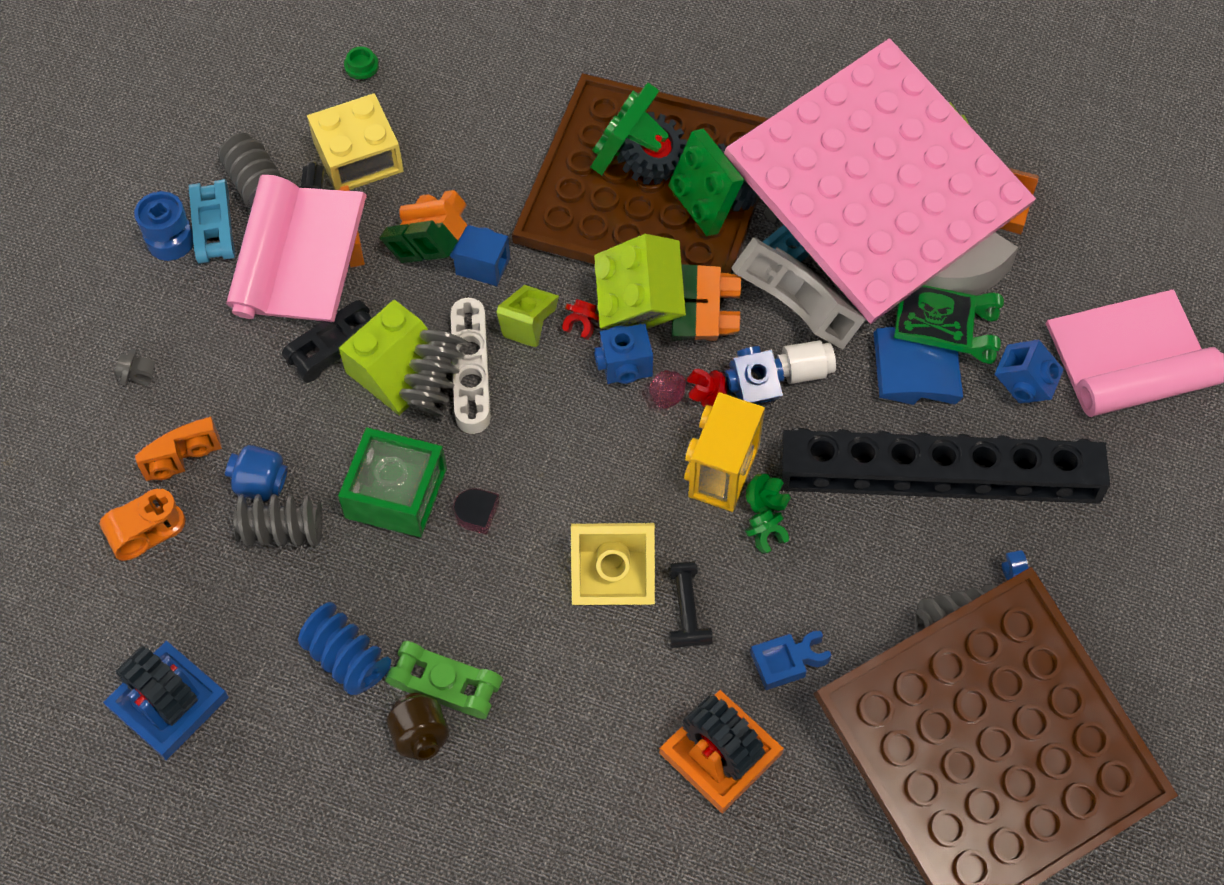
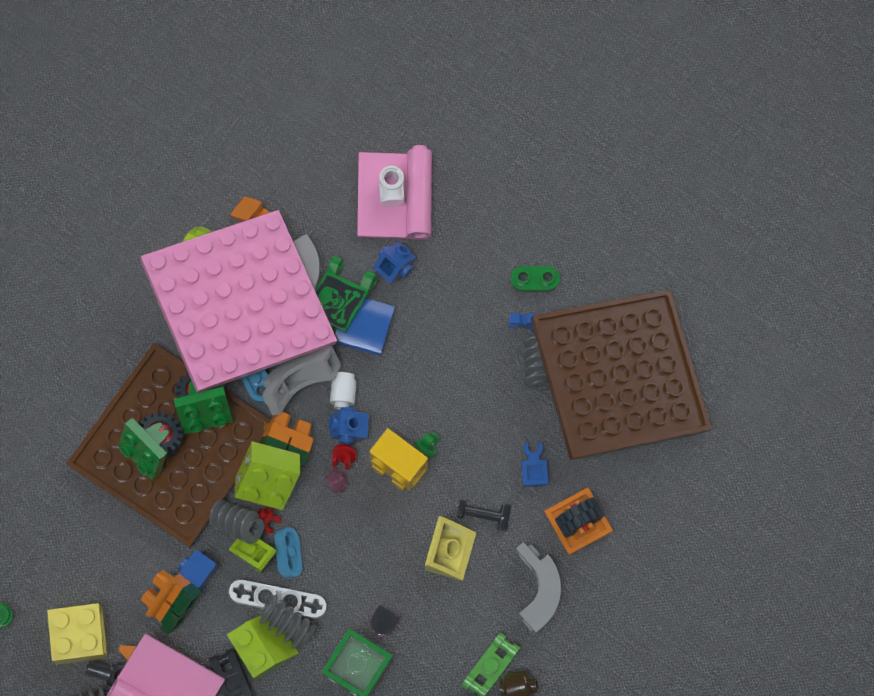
camera: 75 degrees left, 15 degrees up
(540, 359) = (288, 553): none -> dark azure plate
(562, 271) = (236, 521): none -> dark grey piece
(589, 732) = (543, 607): none -> light grey arch
(624, 354) = (306, 491): blue brick -> none
(762, 525) = (447, 454): green plate -> none
(962, 478) = (416, 420): black brick -> none
(1095, 579) = (535, 279): none -> green plate
(1132, 341) = (391, 194): none -> white piece

